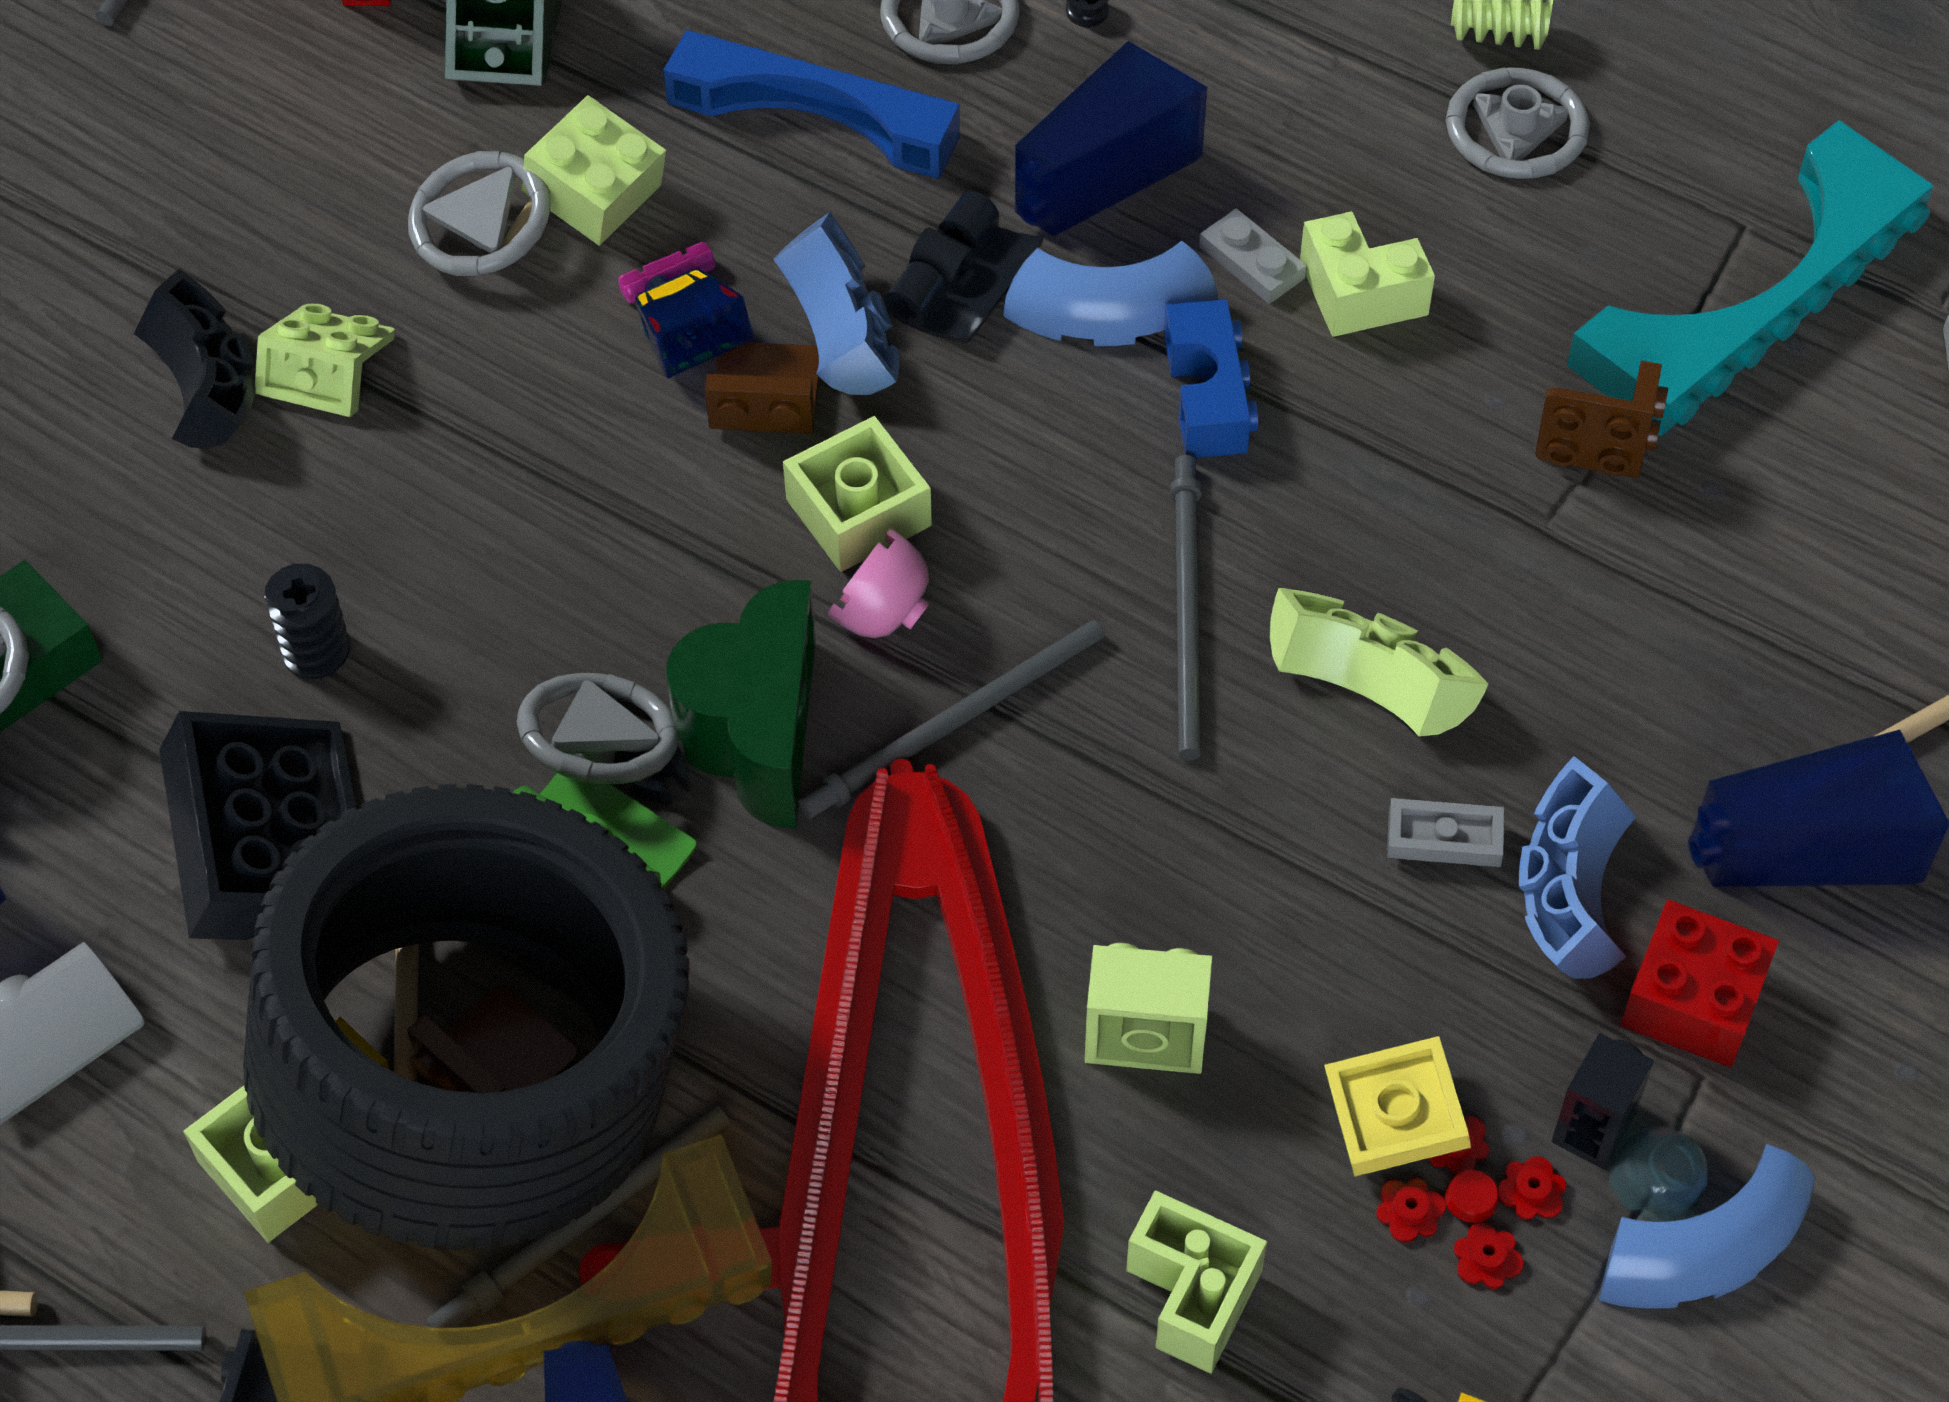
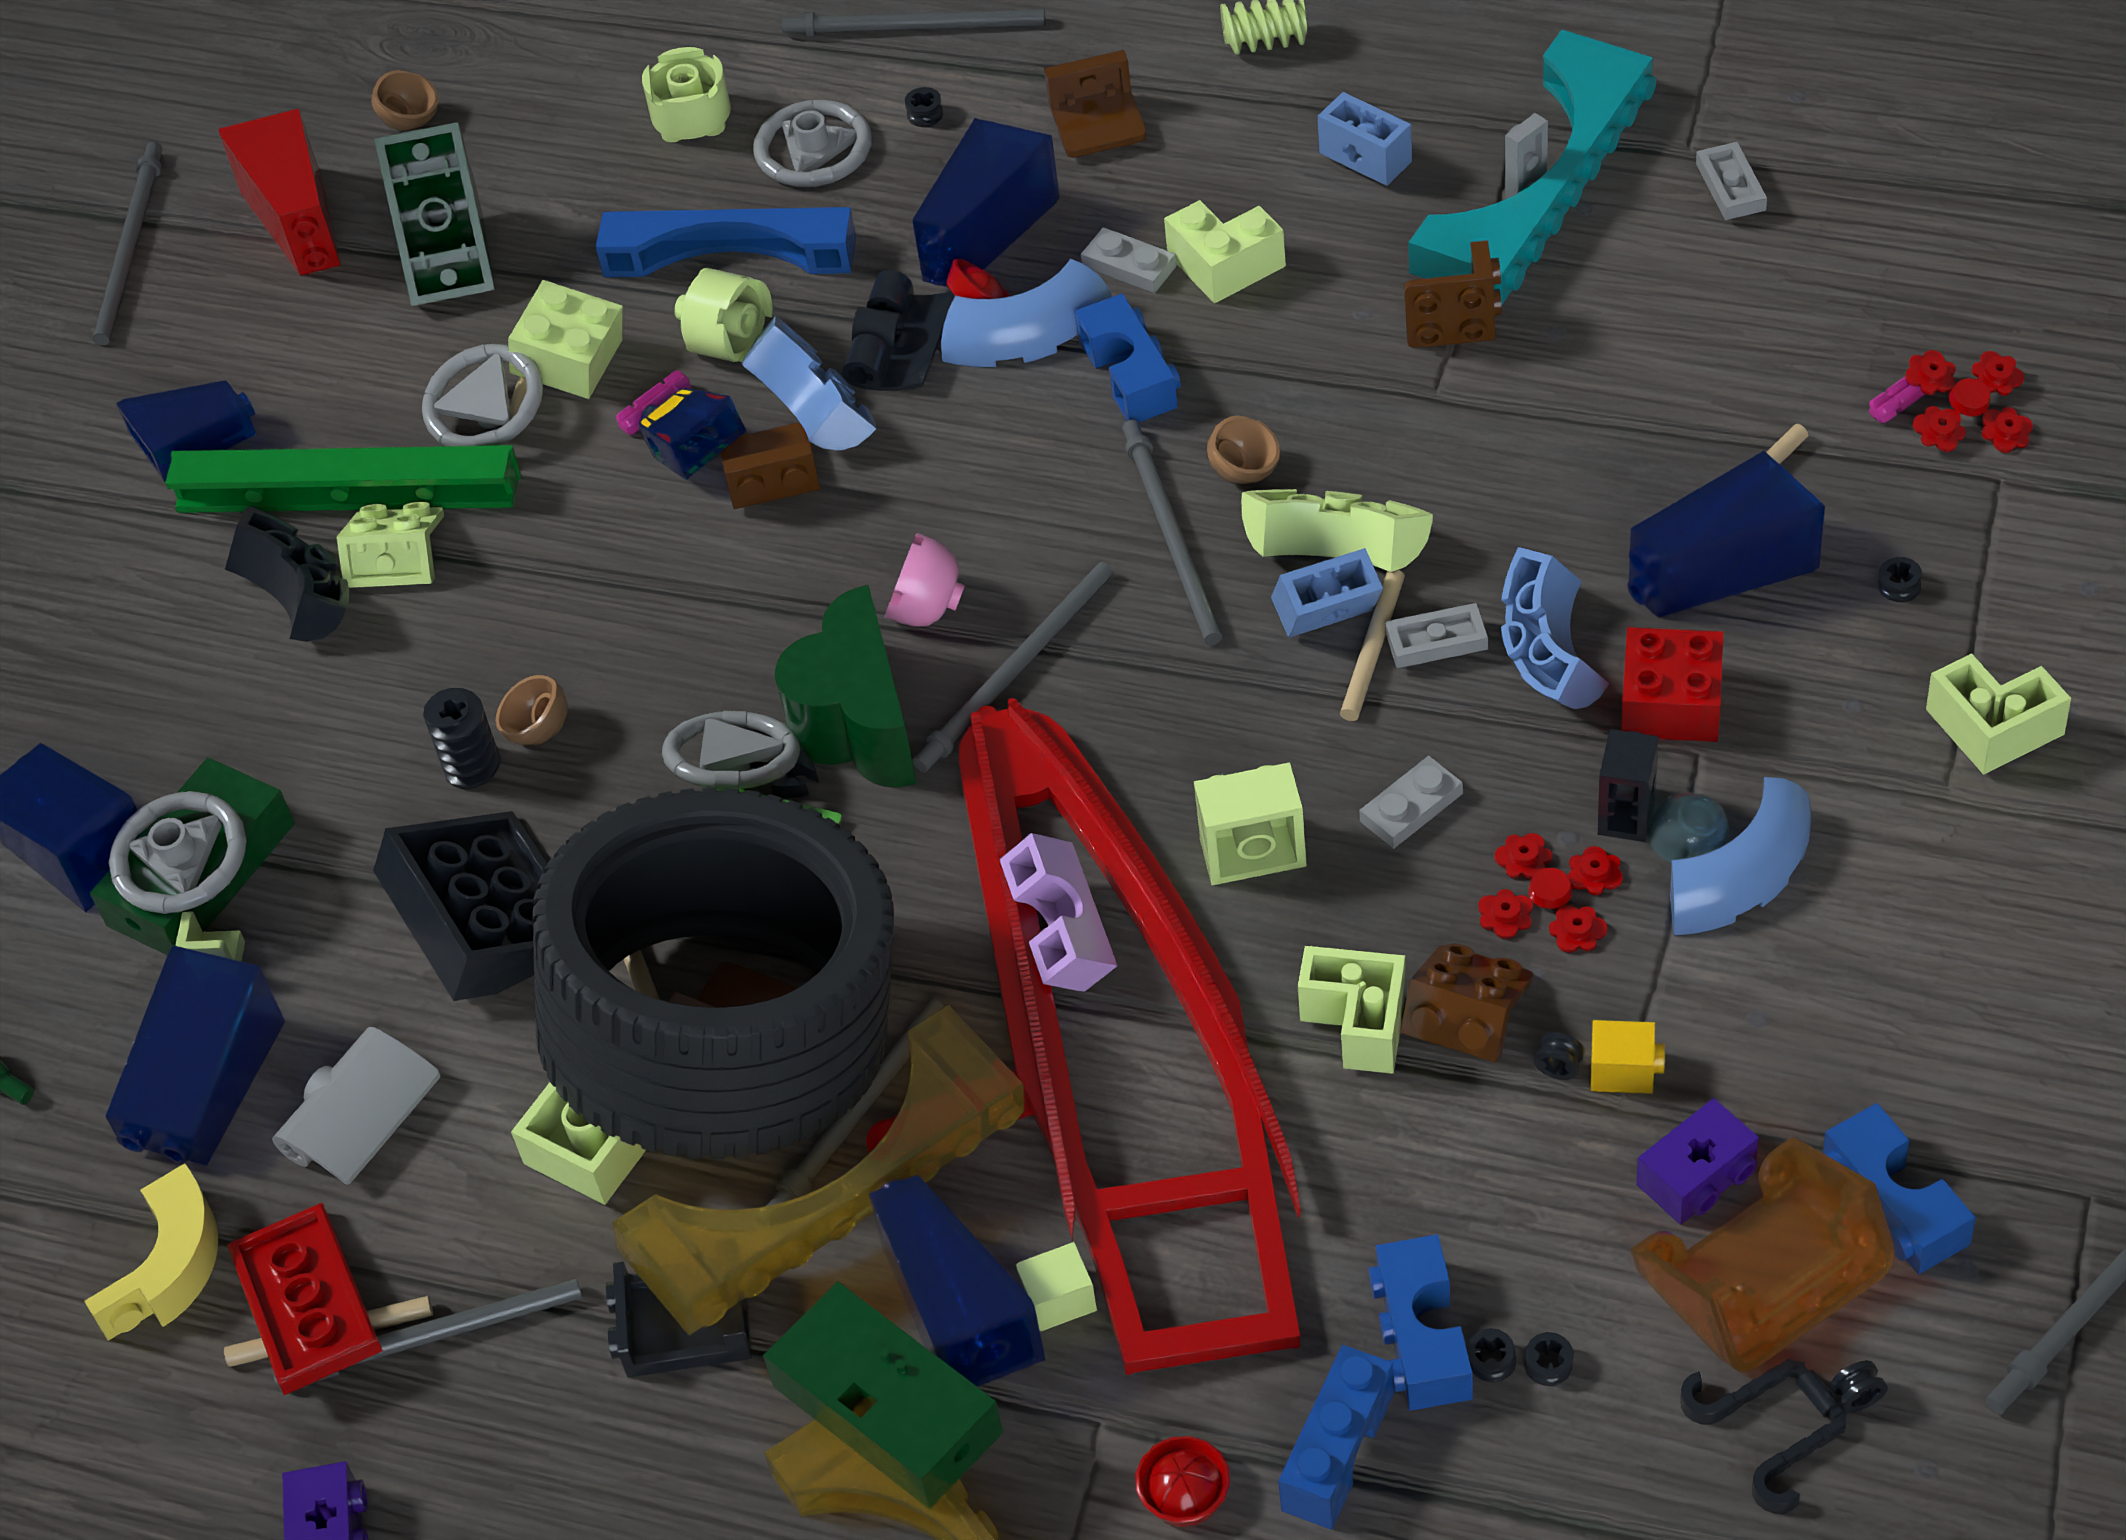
camera: 10 degrees left, 5 degrees down
(156, 149) = (187, 420): none -> clear blue slope
(299, 264) = (343, 478): none -> green tile
(399, 610) = (532, 711): none -> medium nougat piece
(774, 191) = (723, 314): none -> yellowish green brick
(857, 491) = (874, 518): yellowish green brick -> none
(898, 1009) = (1074, 945): none -> lavender arch
(1067, 237) = (972, 282): none -> red hat
(1276, 57) = (1094, 104): none -> reddish brown bracket
(1300, 532) = (1243, 450): none -> medium nougat piece
(1324, 1308) = (1464, 1000): none -> reddish brown bracket
(1334, 742) = (1326, 592): none -> medium blue brick
(1347, 1030) = (1411, 802): none -> light grey plate
(1367, 820) = (1371, 646): none -> tan bar
(1397, 1106) = (1470, 839): light yellow plate -> none
(1518, 122) = (1300, 101): light grey piece -> none
(1568, 188) = (1365, 138): none -> medium blue brick
(1745, 265) = (1525, 154): none -> light grey plate

